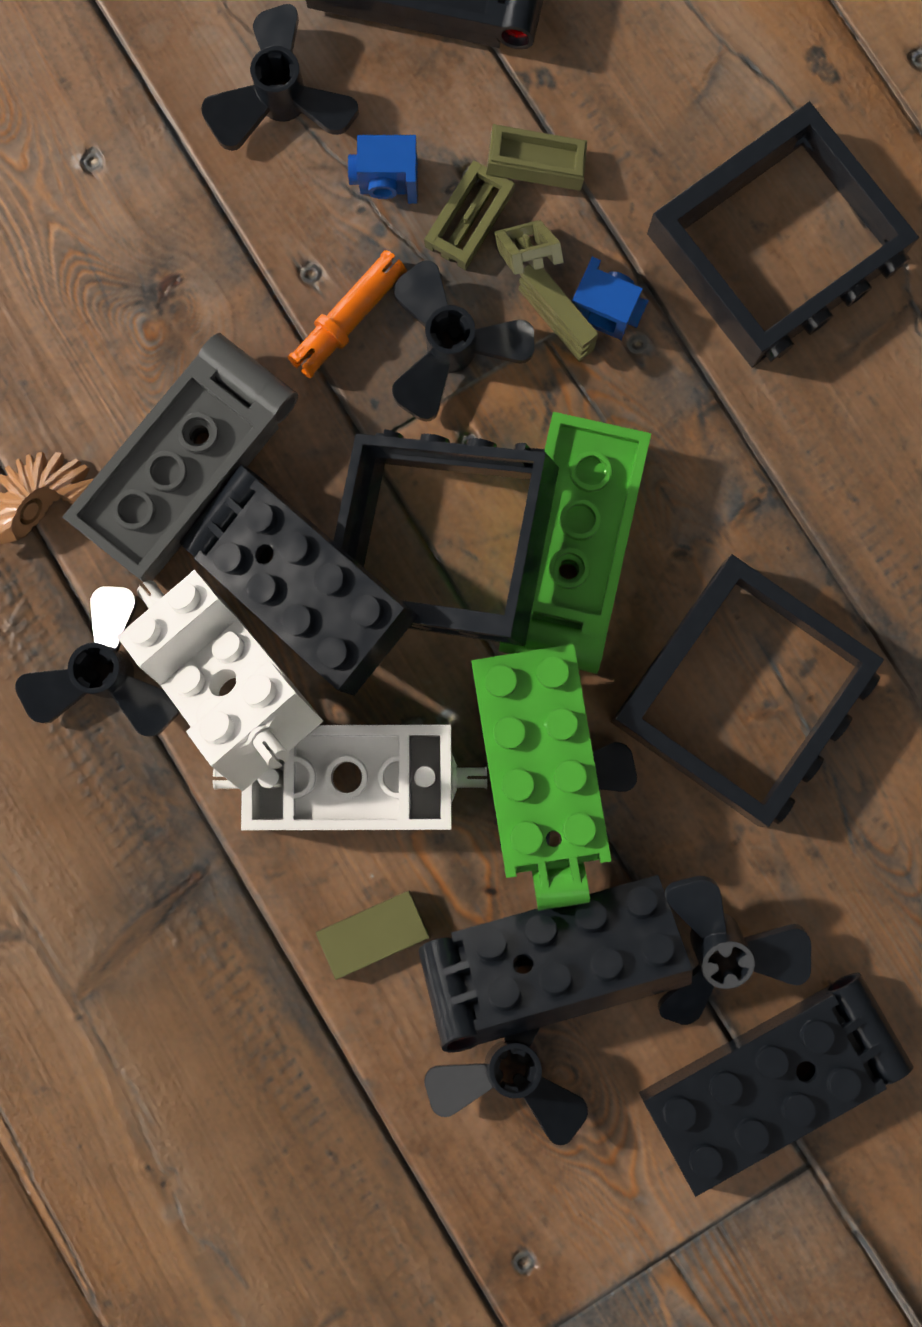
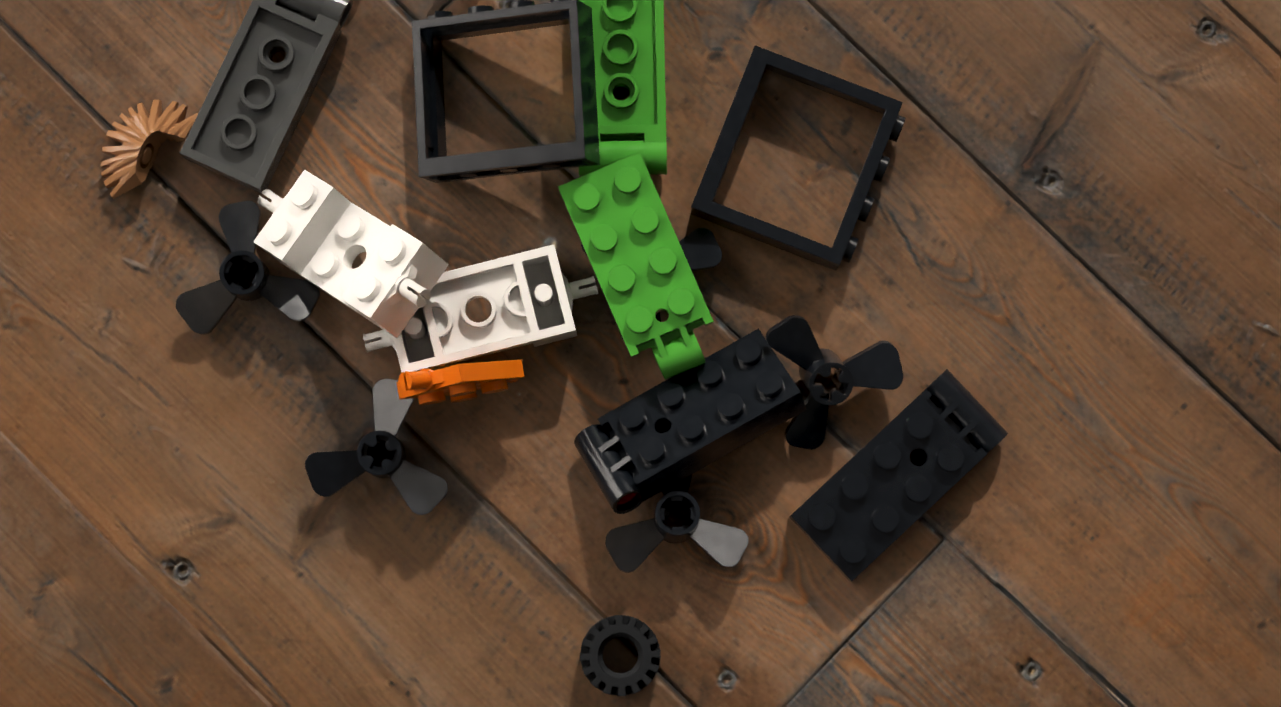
camera: 20 degrees left, 0 degrees up
(228, 955) = (337, 469): none -> black piece
(305, 857) = (458, 381): none -> orange plate
(308, 591) = (407, 158): black hinge -> none
(372, 934) = (532, 440): olive tile -> none
(405, 1240) = (592, 655): none -> black tyre

